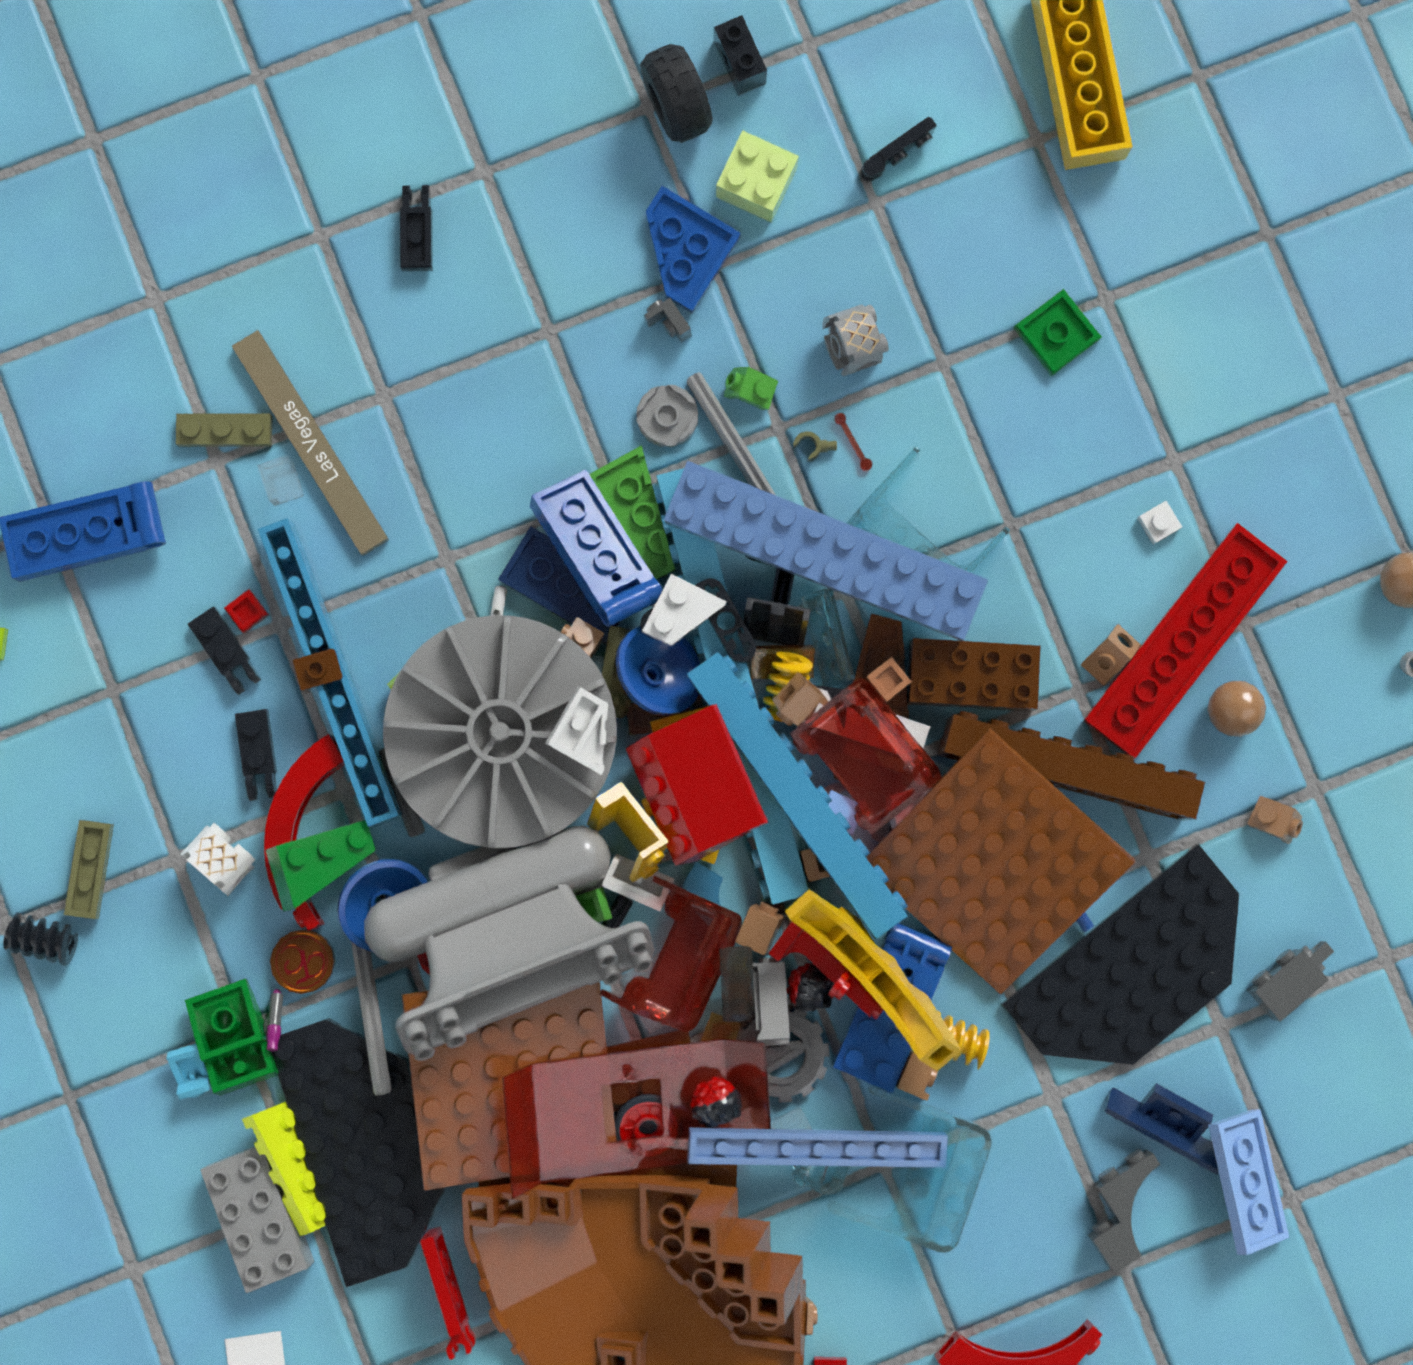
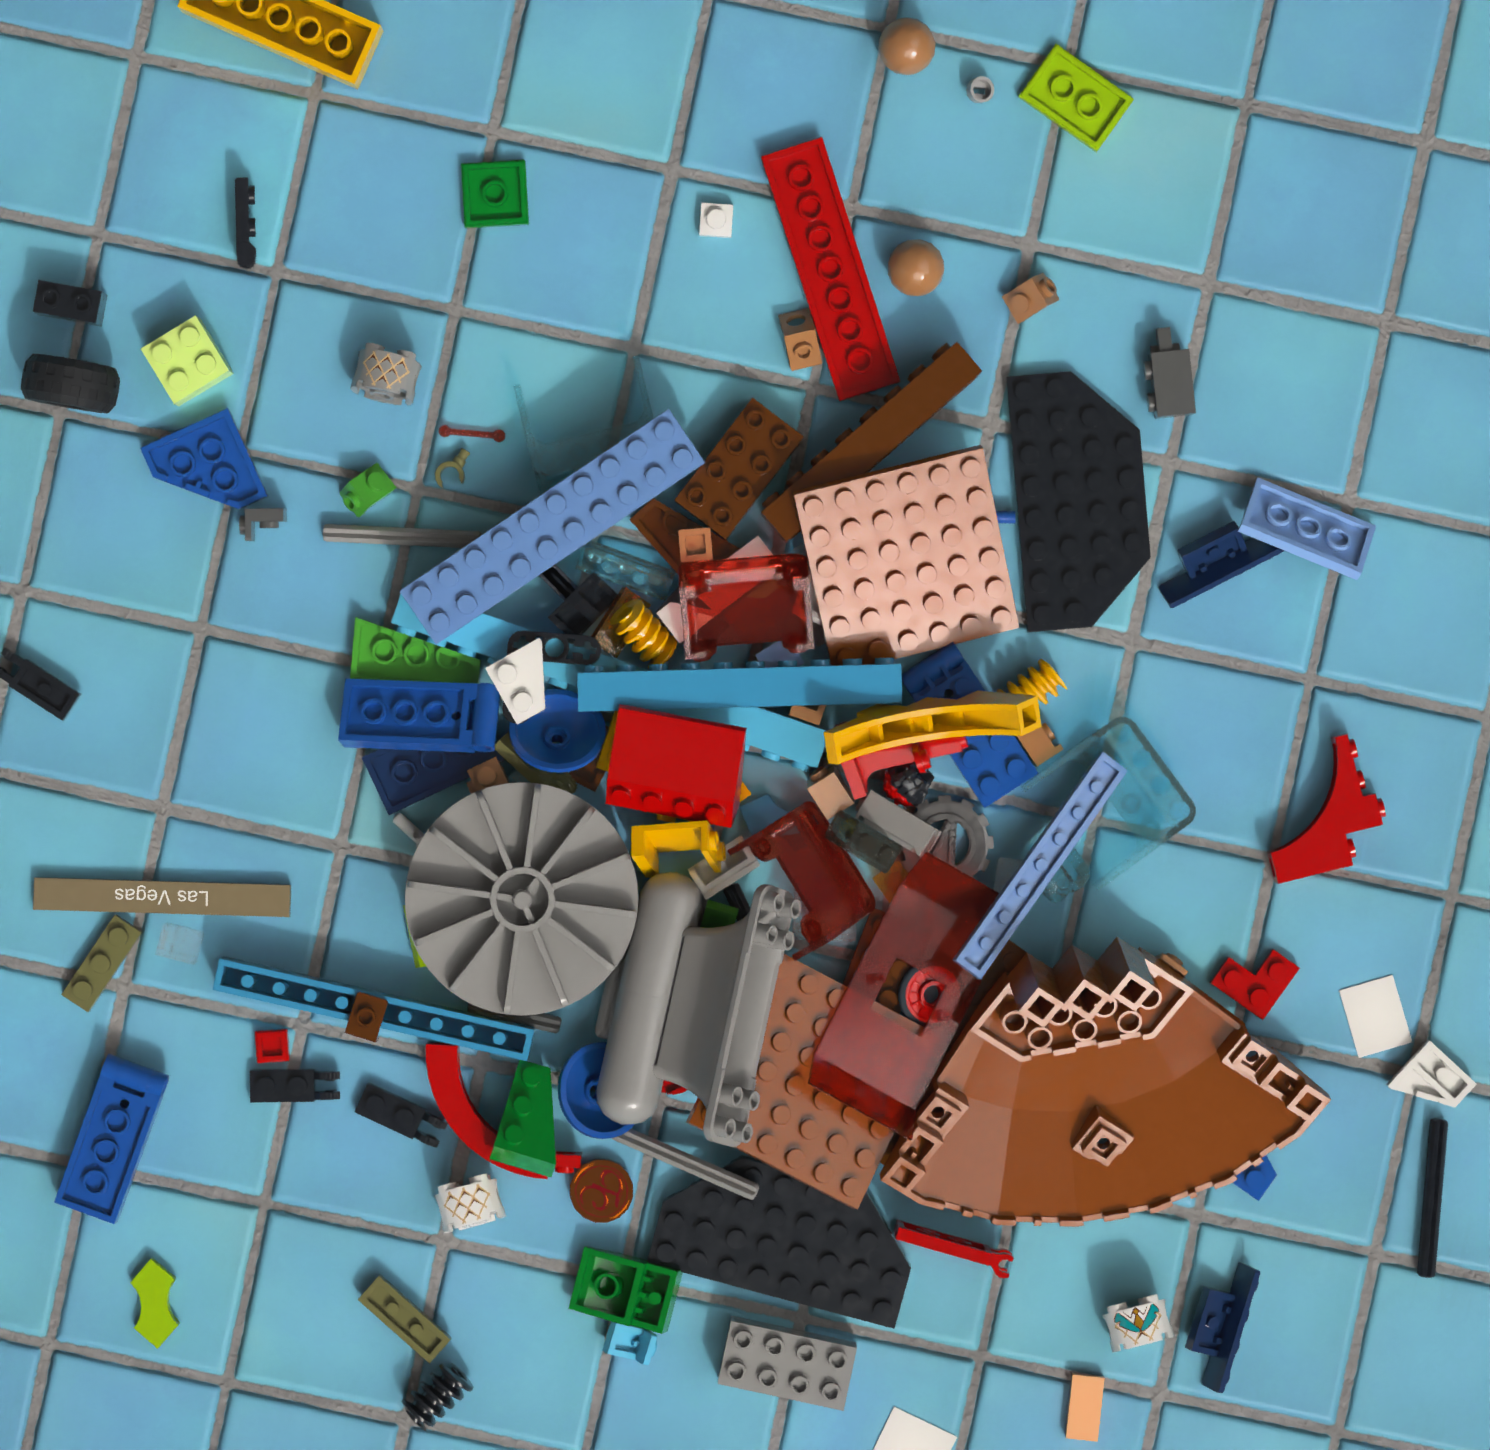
camera: 55 degrees left, 5 degrees up
(272, 1024) = (636, 1248): piece -> none
(289, 1170) = (754, 1306): neon yellow wing -> none
(582, 730) = (568, 830): white wing -> none
(667, 416) = (343, 577): light grey tile -> none
(715, 1102) = (947, 924): piece -> none
(798, 700) = (662, 633): medium nougat brick -> none
(1118, 1190) = (1242, 641): dark grey arch -> none

